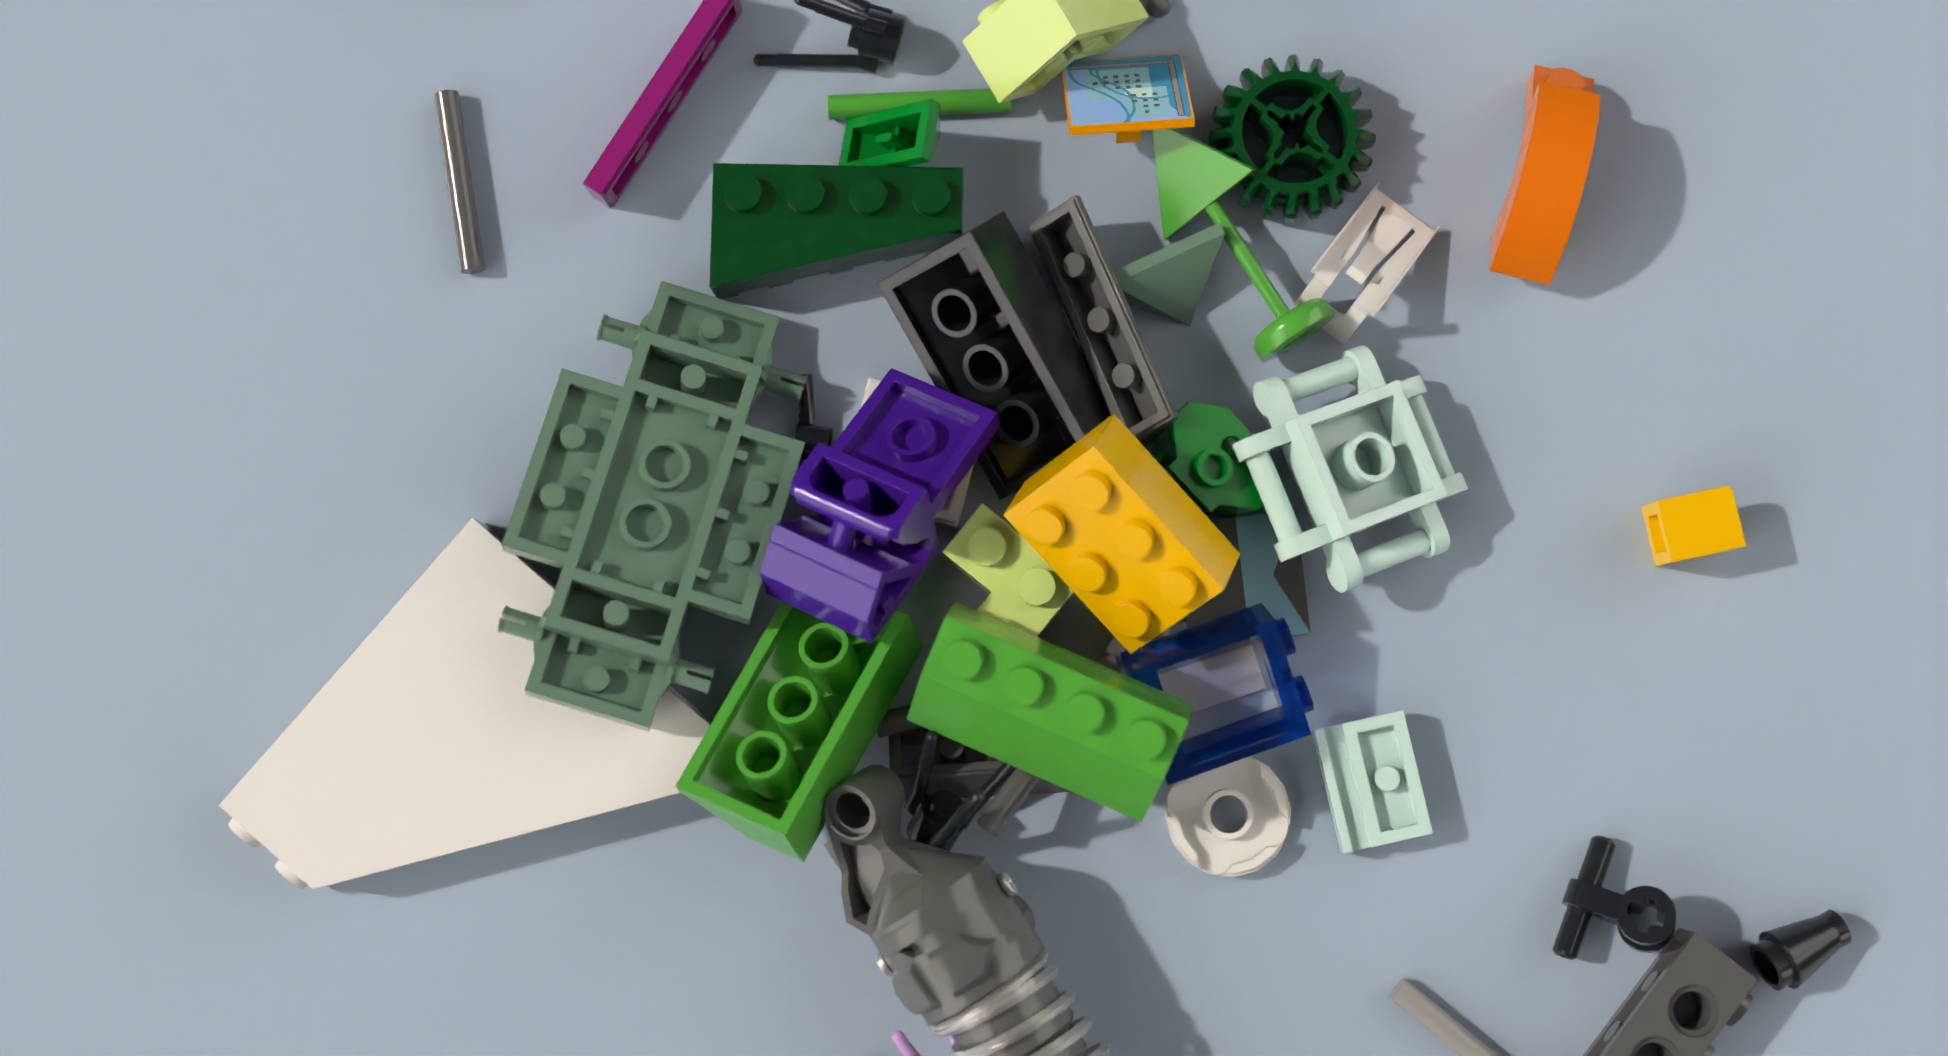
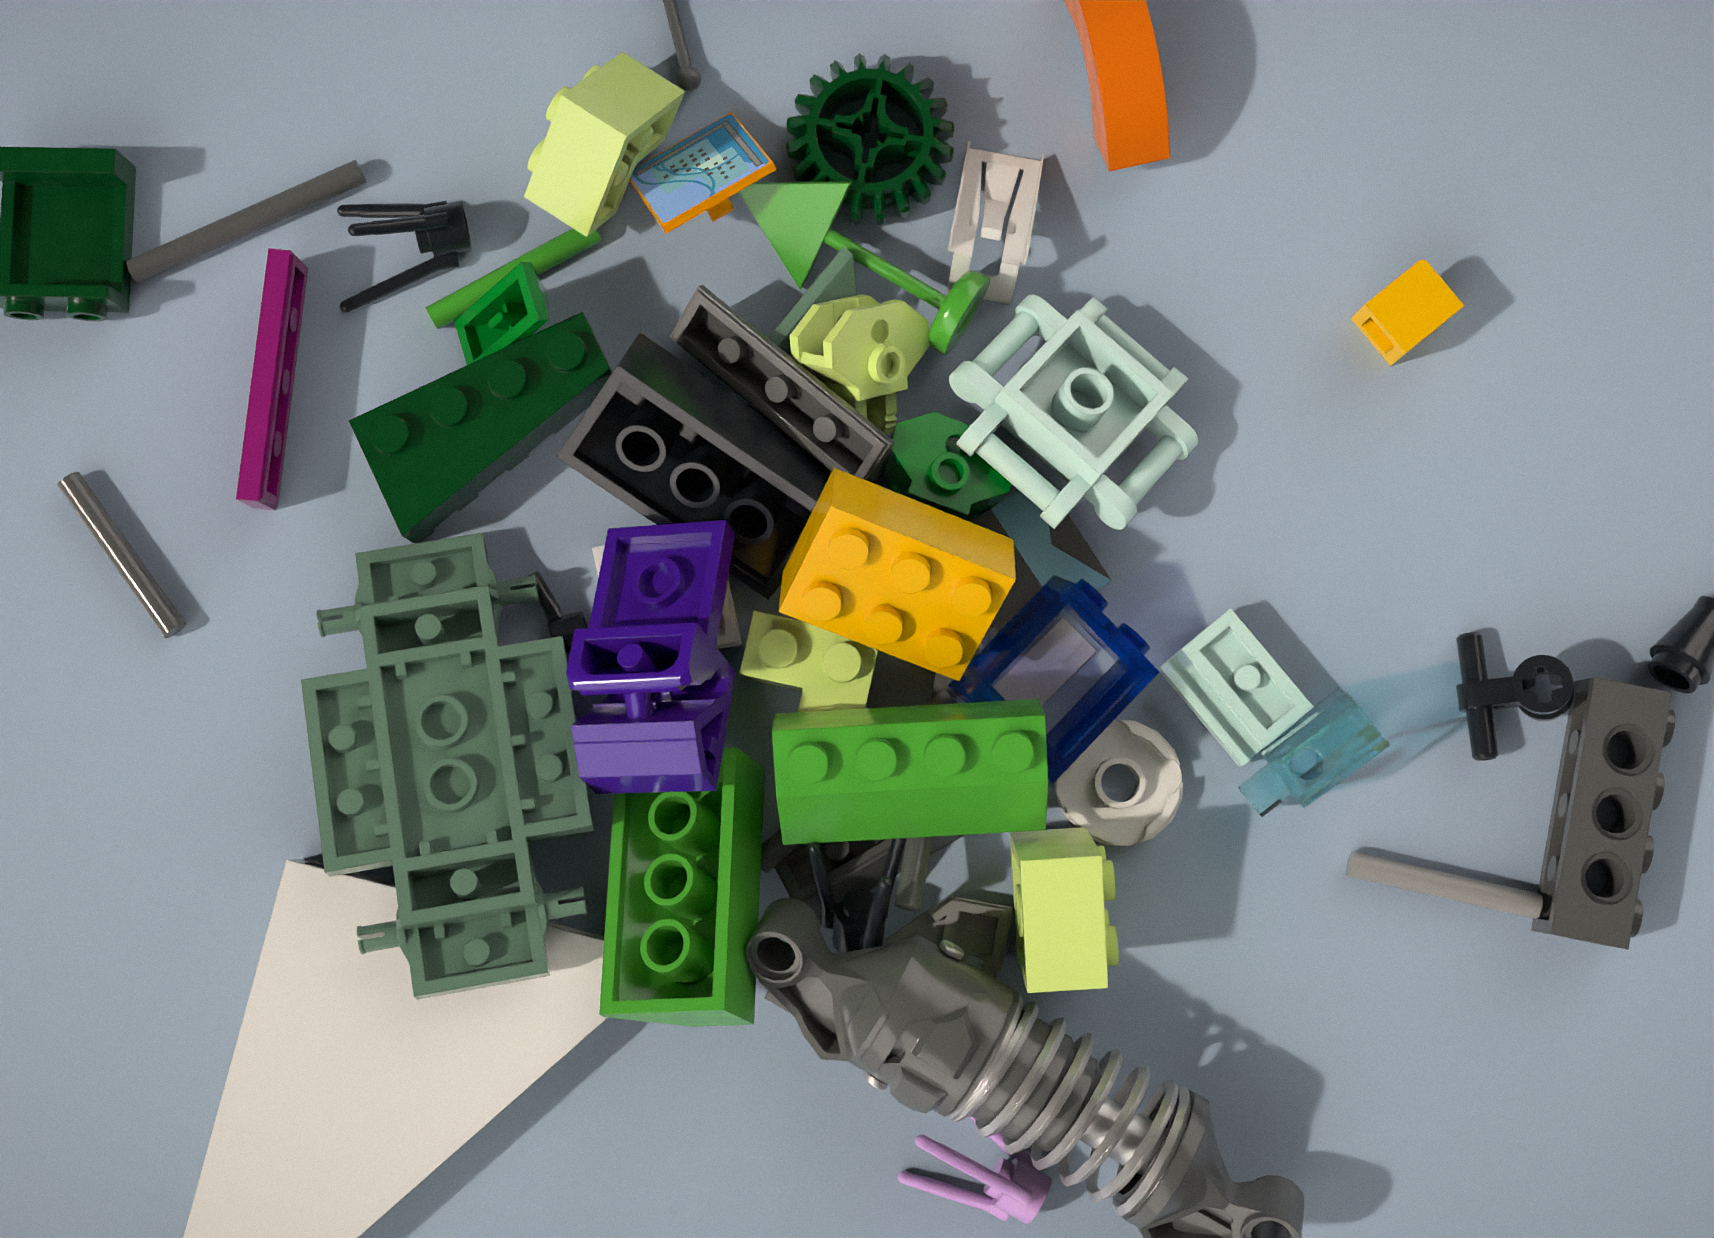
camera: 30 degrees left, 0 degrees up
(1034, 871) = (970, 924): none -> light grey tile
(1118, 897) = (1060, 910): none -> yellowish green brick
(1190, 325) = (863, 353): none -> yellowish green hinge
(1441, 871) = (1342, 743): none -> clear light blue torso

